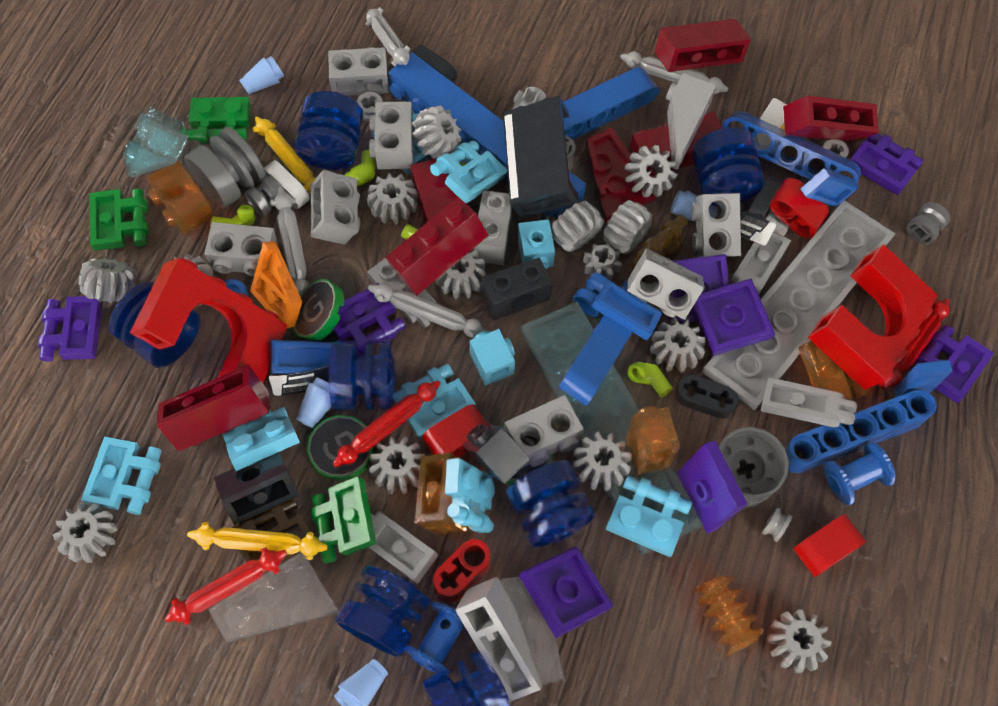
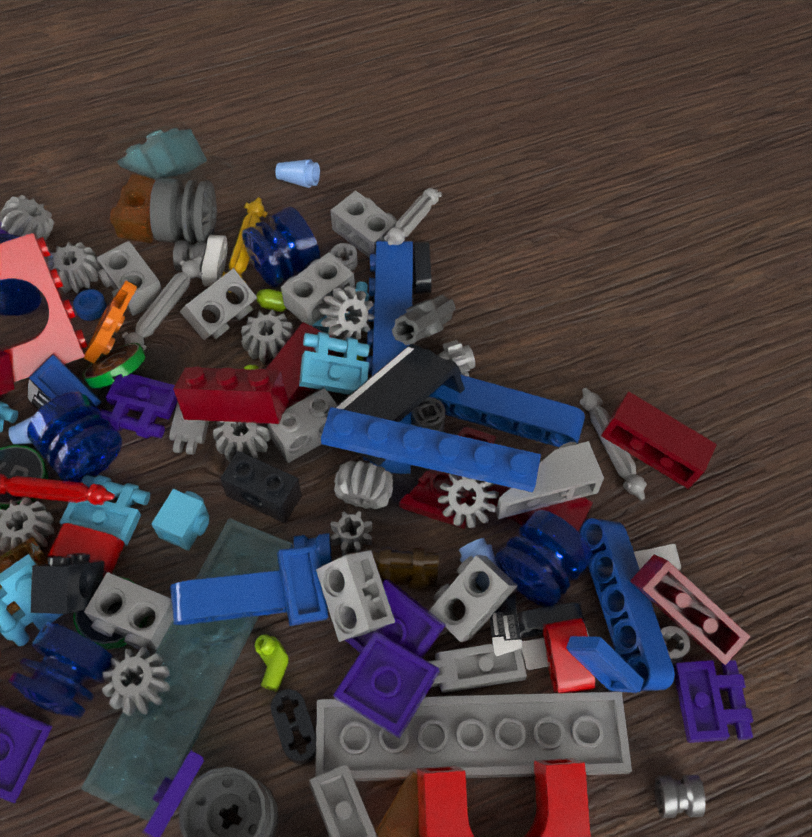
camera: 50 degrees right, 5 degrees down
(108, 223) = (84, 184): green plate -> none
(218, 113) = (243, 176): green plate -> none
(244, 217) = (159, 260): lime arm -> none
(426, 309) = (182, 440): light grey wheel -> none
(488, 93) = (423, 319): none -> dark grey piece
(536, 241) = (318, 470): medium azure brick -> none
(608, 157) = (431, 449): none -> blue plate
(627, 227) = (401, 524): light grey gear -> none
(645, 525) = (105, 768): medium azure plate -> none
(652, 440) = (178, 703): clear orange brick -> none
(677, 345) = (320, 645): light grey gear -> none

